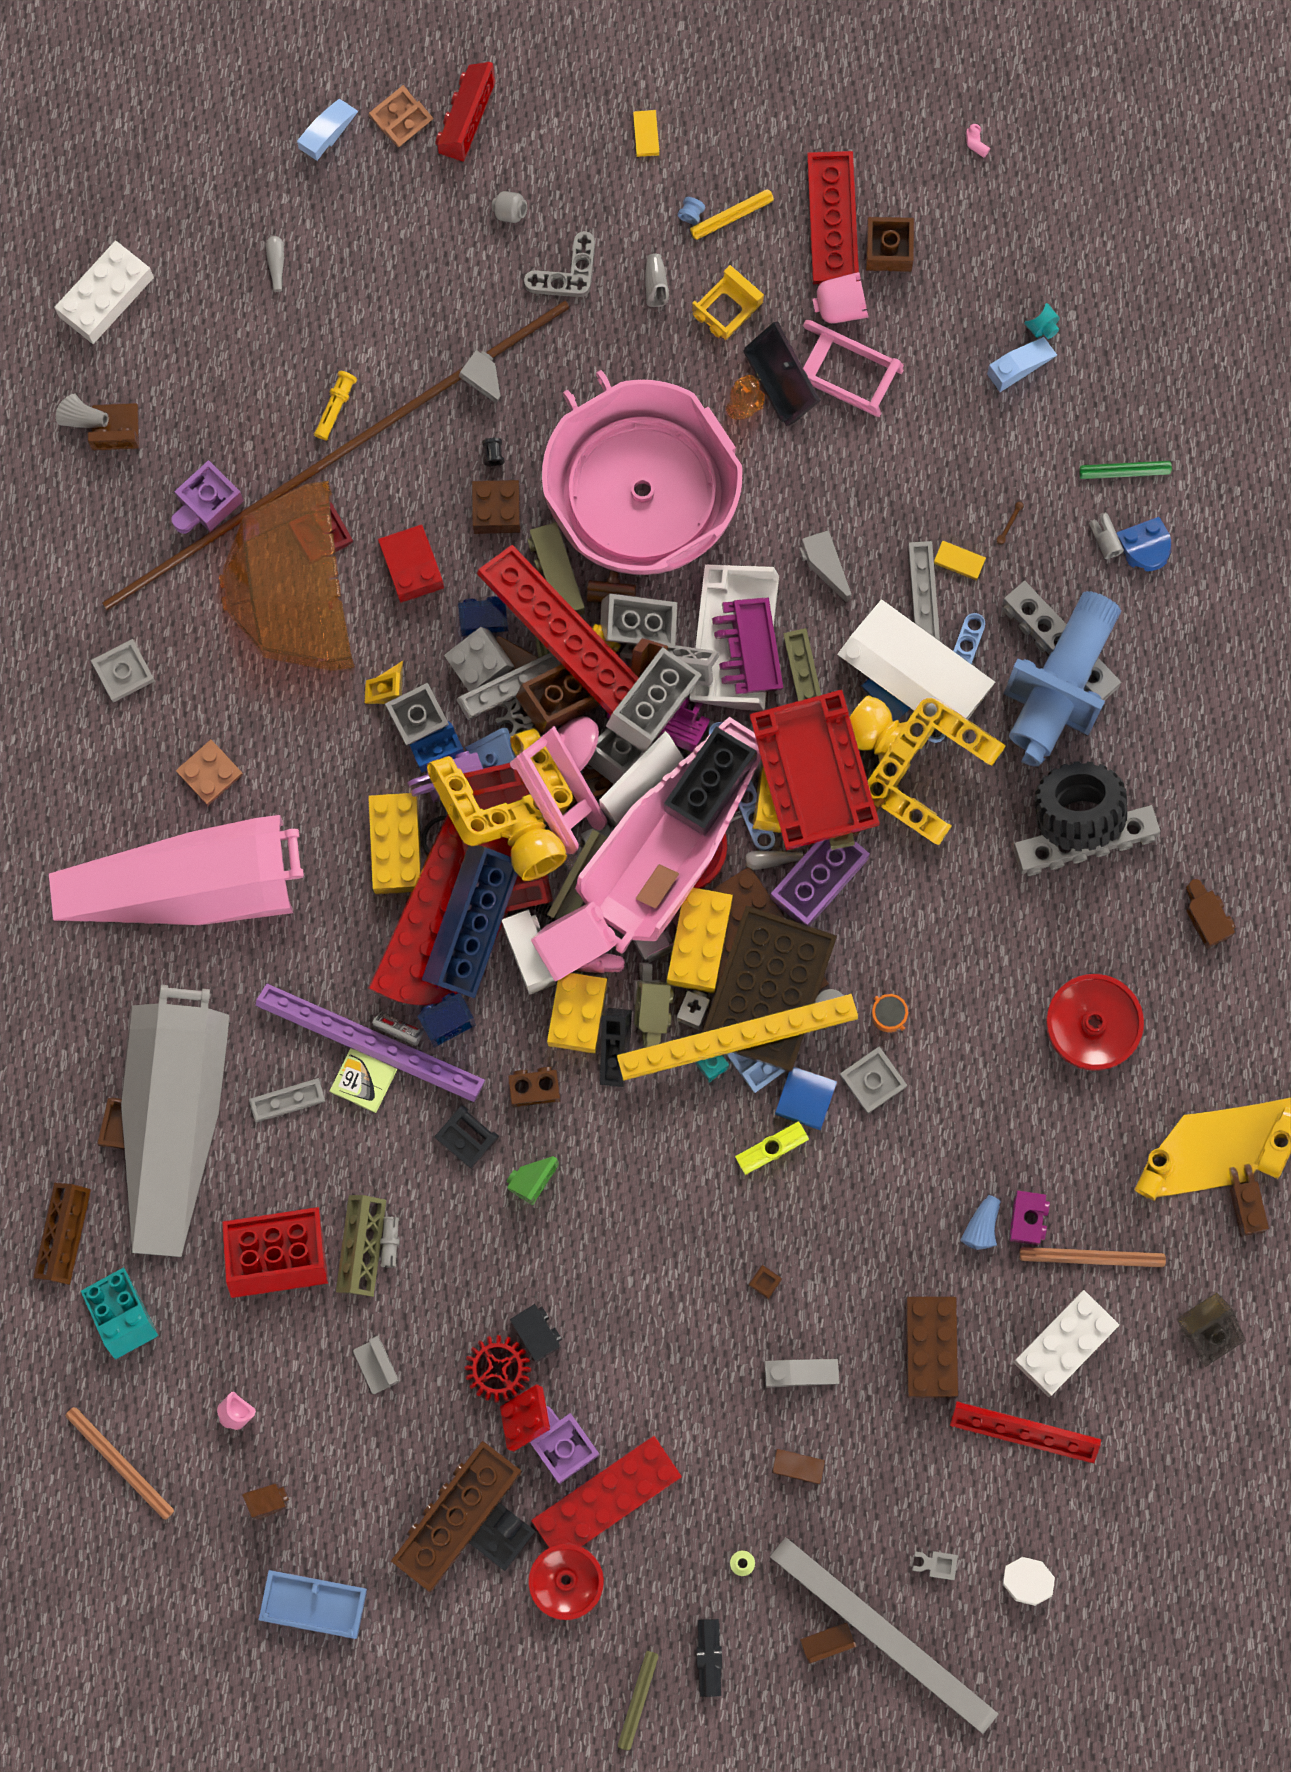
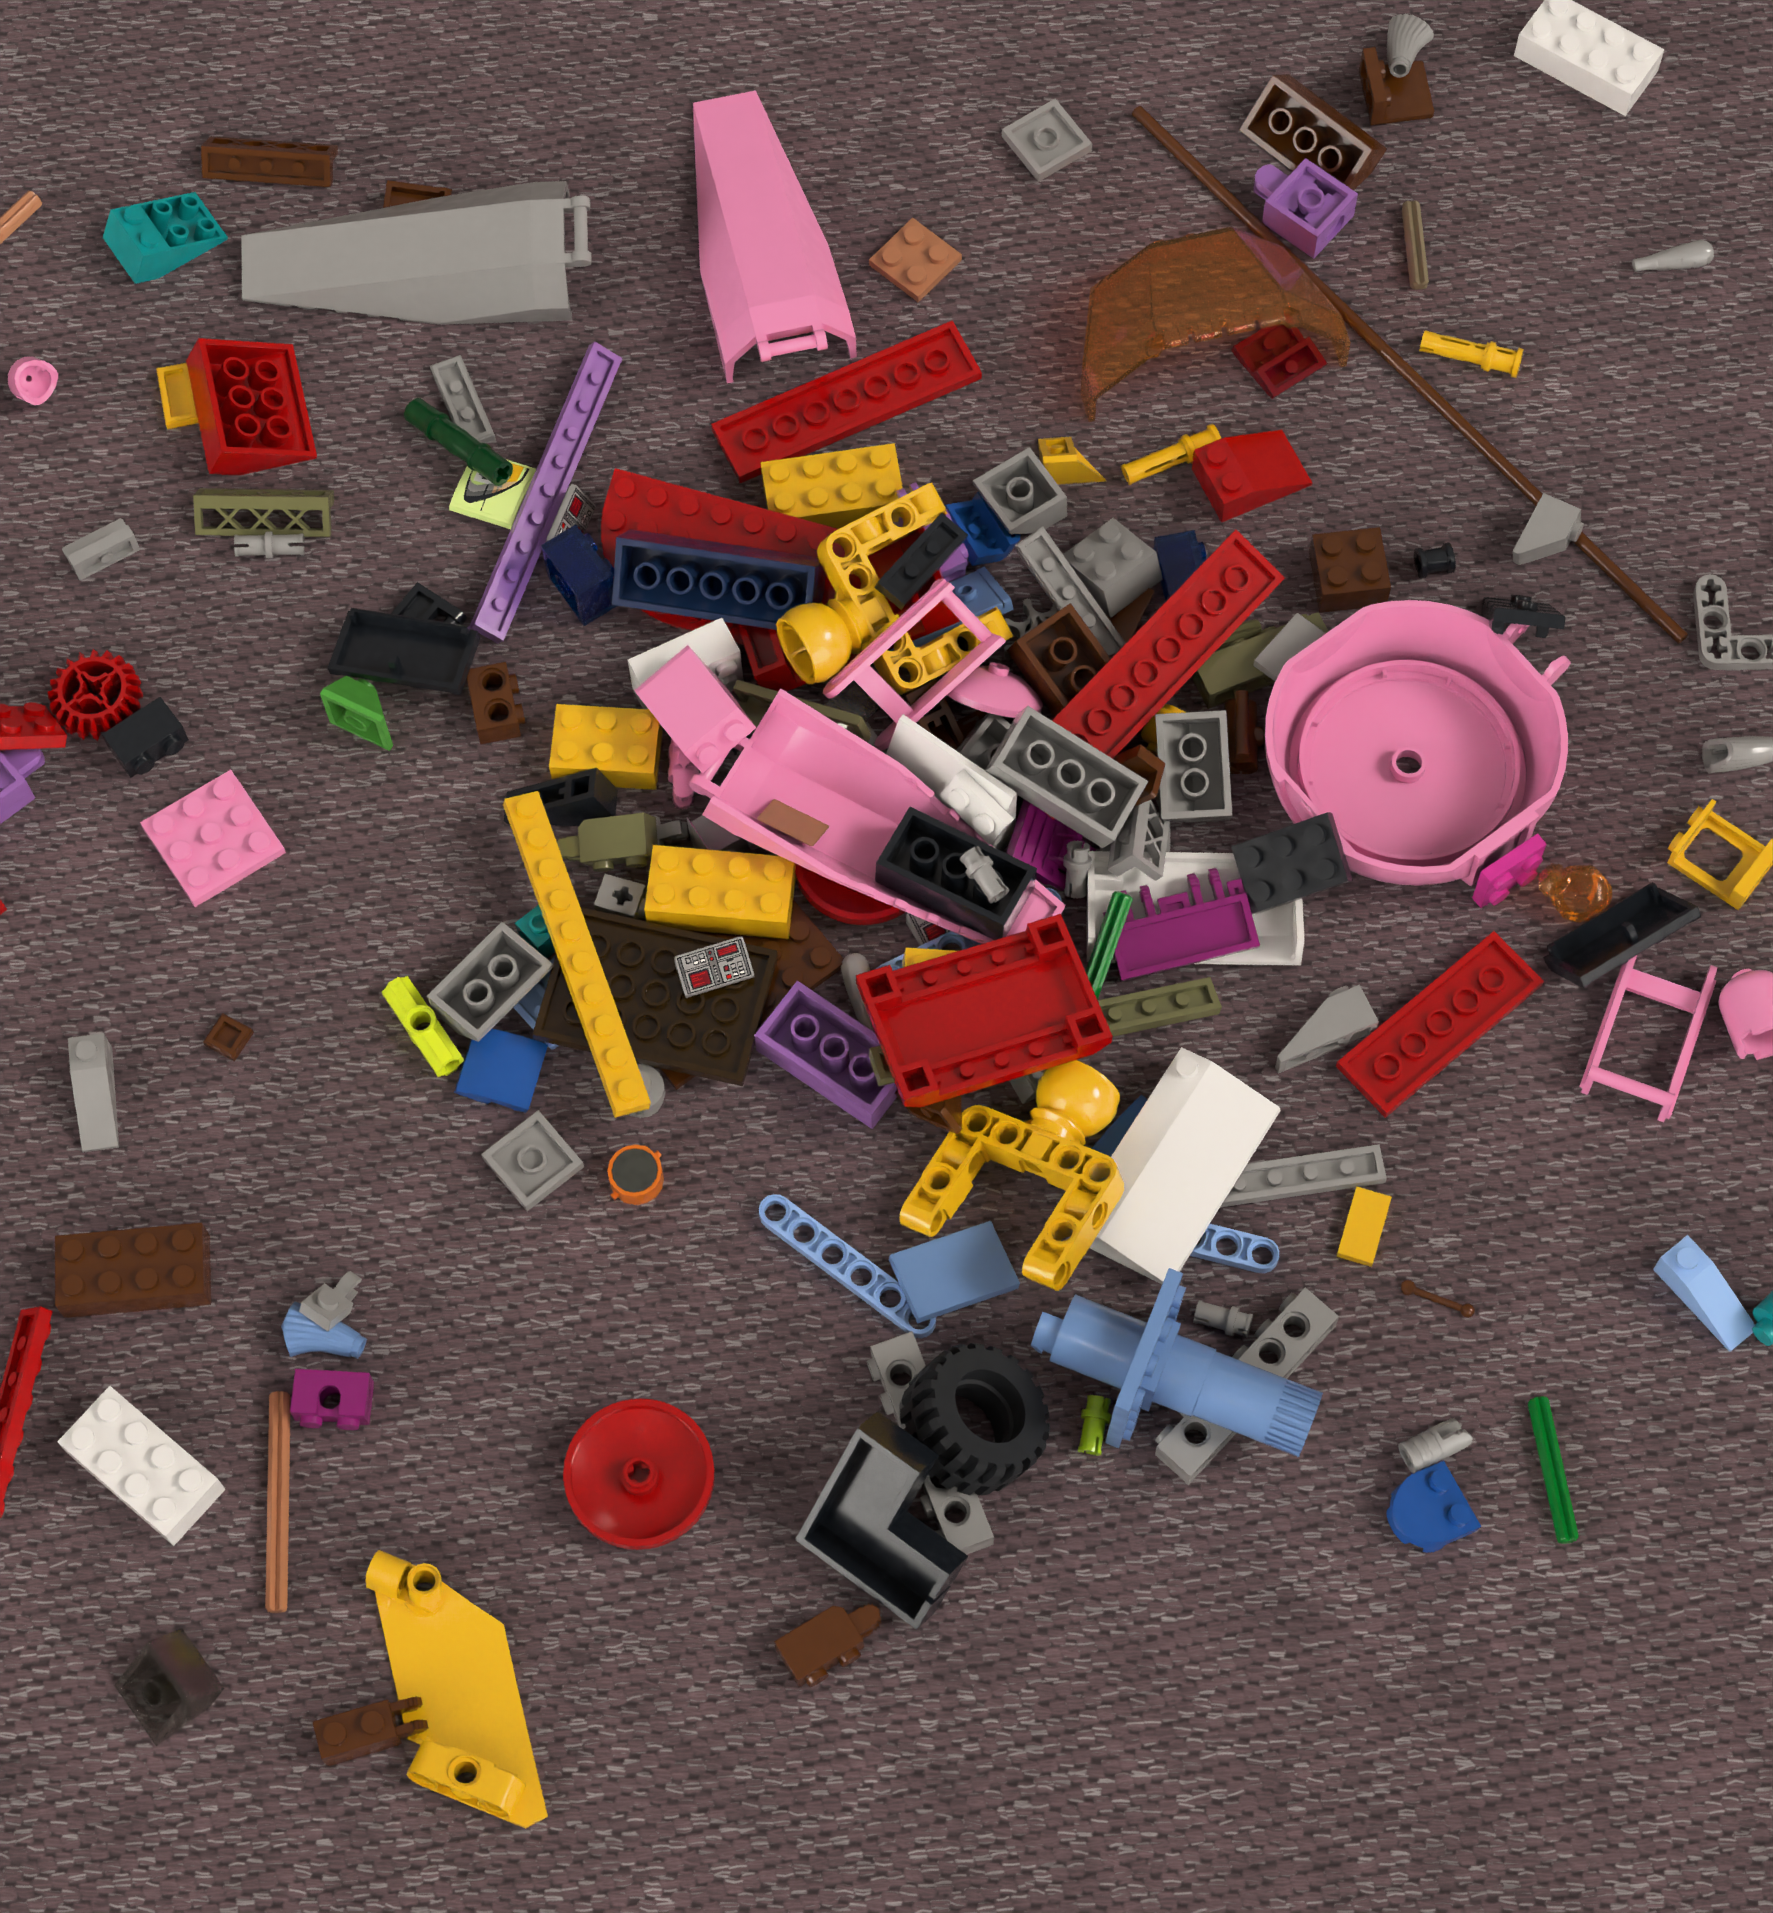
camera: 85 degrees right, 10 degrees down
(146, 488) = (1300, 125): none -> reddish brown slope
(242, 431) = (1415, 245): none -> dark tan axle
(255, 1306) = (177, 396): none -> yellow tile
(322, 829) = (847, 400): none -> red plate
(325, 1101) = (458, 441): none -> dark green piece
(388, 603) = (1169, 456): none -> yellow pin
(488, 775) = (921, 561): none -> black plate
(493, 1146) = (404, 651): none -> black container
(554, 398) = (1521, 611): none -> black container
(558, 551) = (1288, 642): none -> light grey tile
(615, 1289) = (212, 838): none -> bright pink plate
(666, 761) = (976, 807): none -> white plate
(702, 707) = (1076, 865): none -> light grey pin
(719, 759) = (980, 868): none -> light grey pin
(720, 566) = (1292, 863): none -> black plate
(739, 439) = (1512, 869): none -> dark pink plate
(752, 1097) = (488, 983): none -> light grey slope
(757, 690) = (1107, 939): none -> green axle
(757, 946) = (713, 966): none -> slope
(827, 495) = (1439, 1024): none -> red plate
(958, 881) = (842, 1270): none -> light blue beam
(965, 1216) = (330, 1305): none -> light grey plate
(972, 815) = (954, 1271): none -> medium blue tile
(1016, 649) = (1223, 1318): none -> light grey pin
(1078, 739) = (1093, 1429): none -> lime pin
(1145, 876) = (865, 1526): none -> black piece

